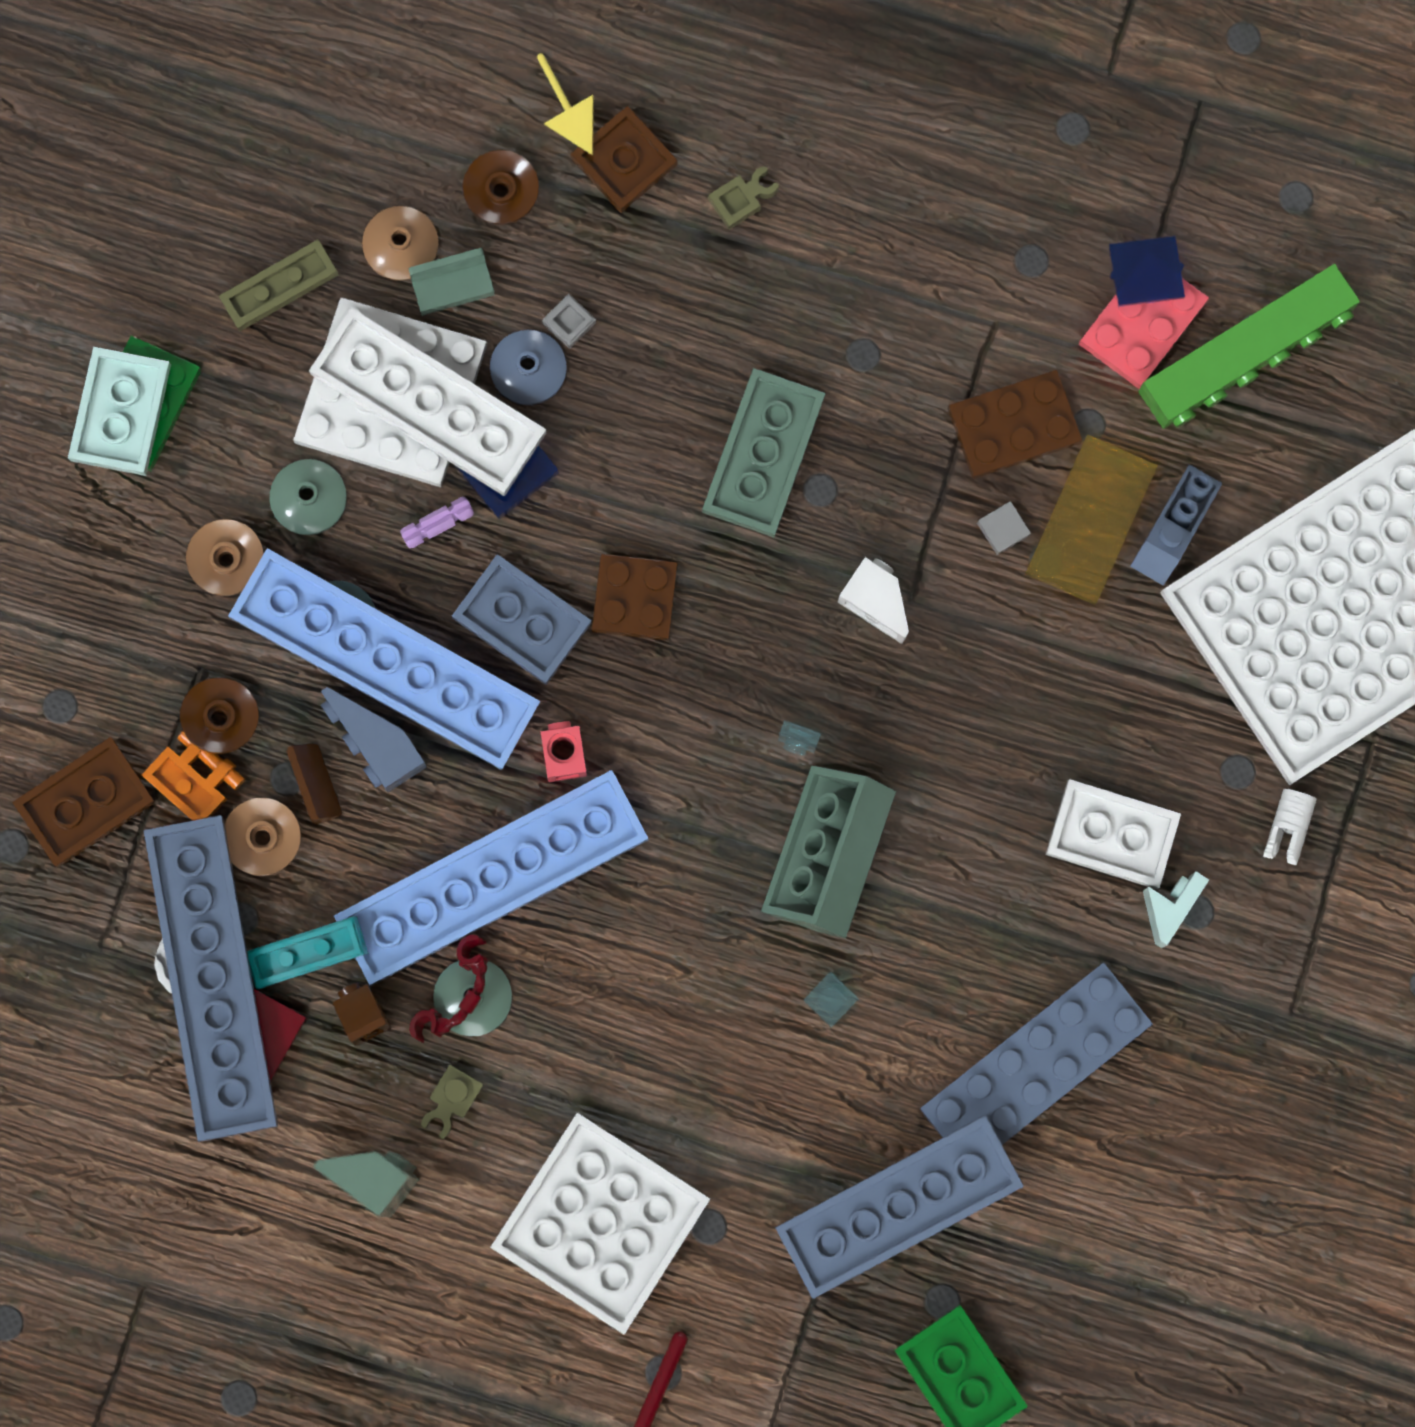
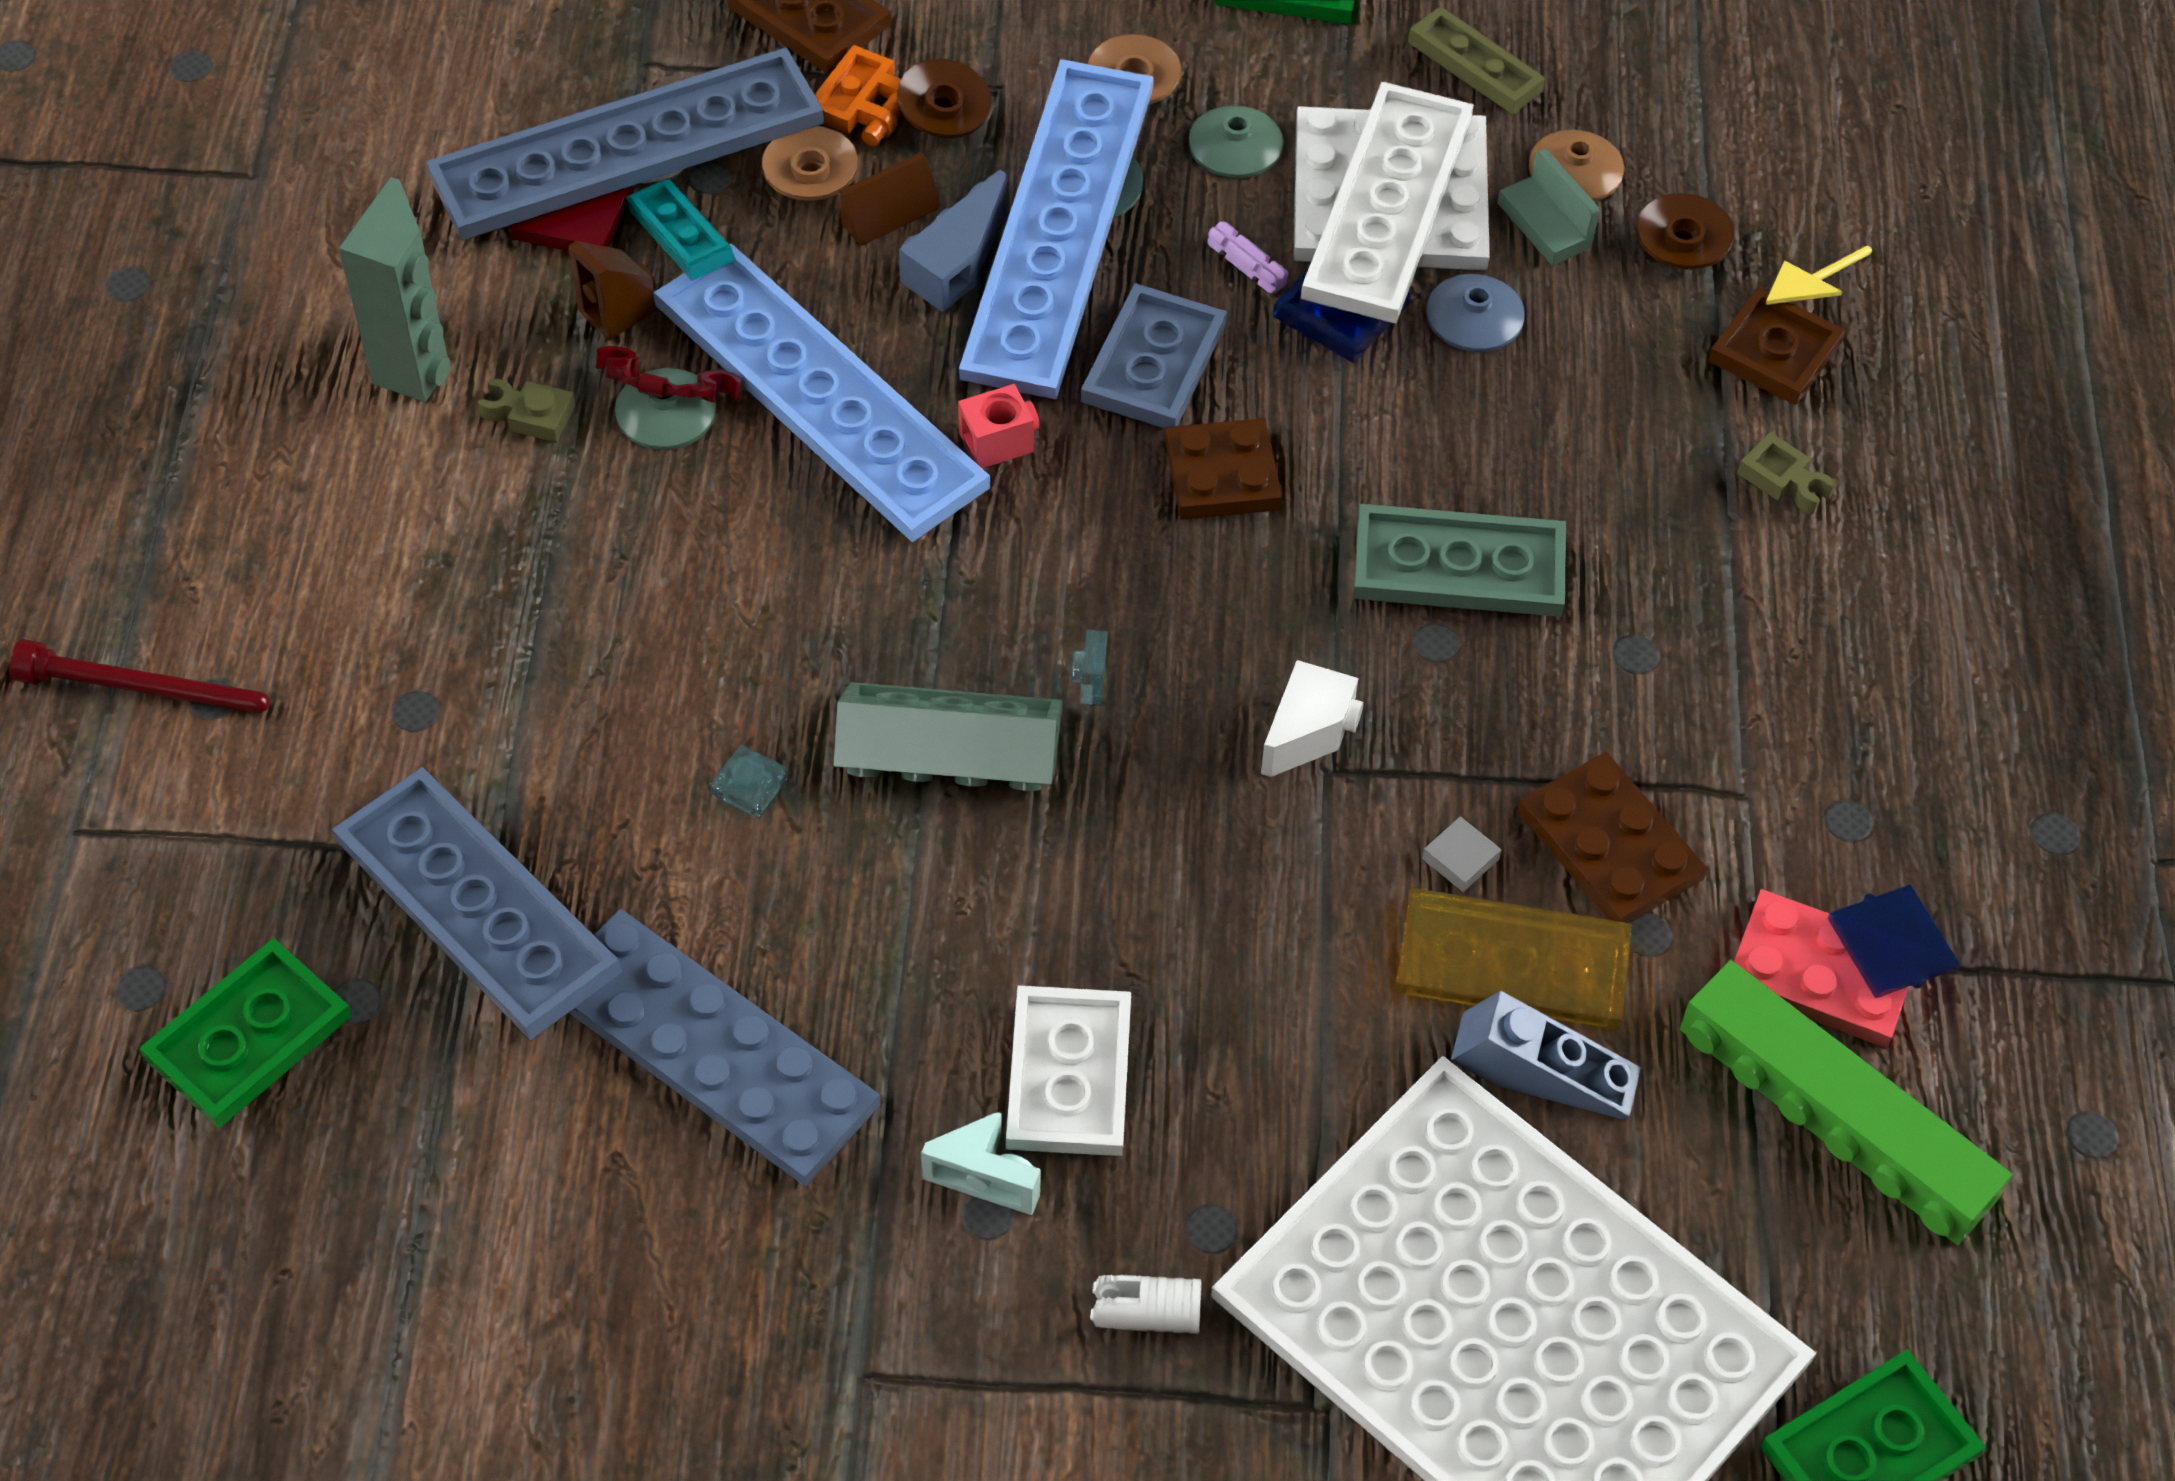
camera: 80 degrees right, 25 degrees down
(569, 321) = (1549, 337): light grey tile -> none
(600, 1223) = (397, 583): white plate -> none

